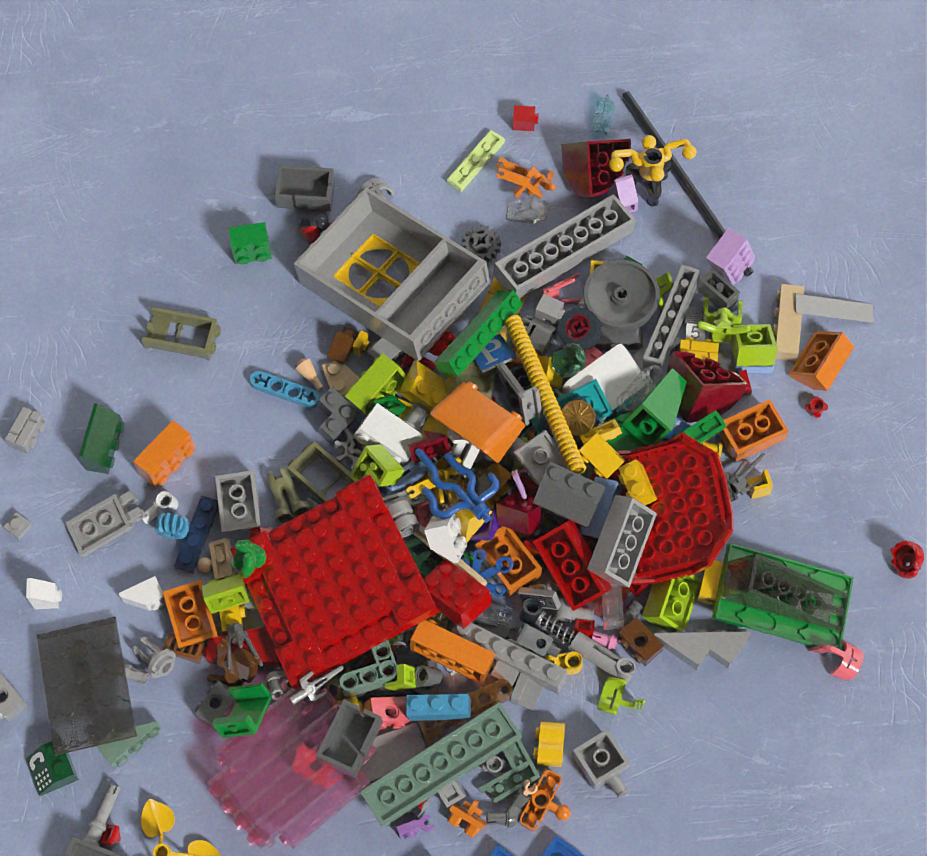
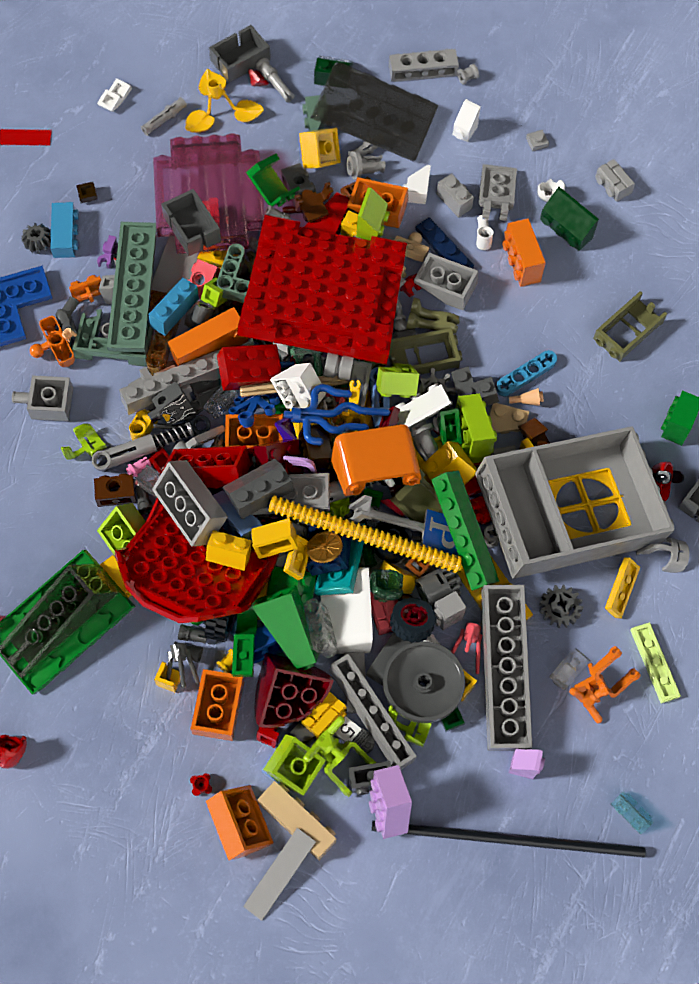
camera: 120 degrees right, 0 degrees up
(73, 475) = (546, 189): none -> white hair
(135, 555) = (455, 195): none -> light grey brick
(166, 707) = (320, 148): none -> yellow slope
(172, 526) = (460, 227): dark azure gear -> none
(236, 636) = (337, 214): dark grey plant -> none
(248, 557) = (384, 240): green hair -> none
(309, 688) = (251, 224): light grey piece -> none
(434, 211) = (622, 587): none -> yellow plate
(462, 321) = (494, 541): none -> light grey bush
(524, 118) = (673, 733): red brick -> none
(550, 744) = (91, 375): yellow brick -> none
(588, 165) = (578, 759): dark red brick -> none
(651, 165) = (544, 788): yellow wheel -> none
(696, 646) = (77, 527): light grey slope -> none

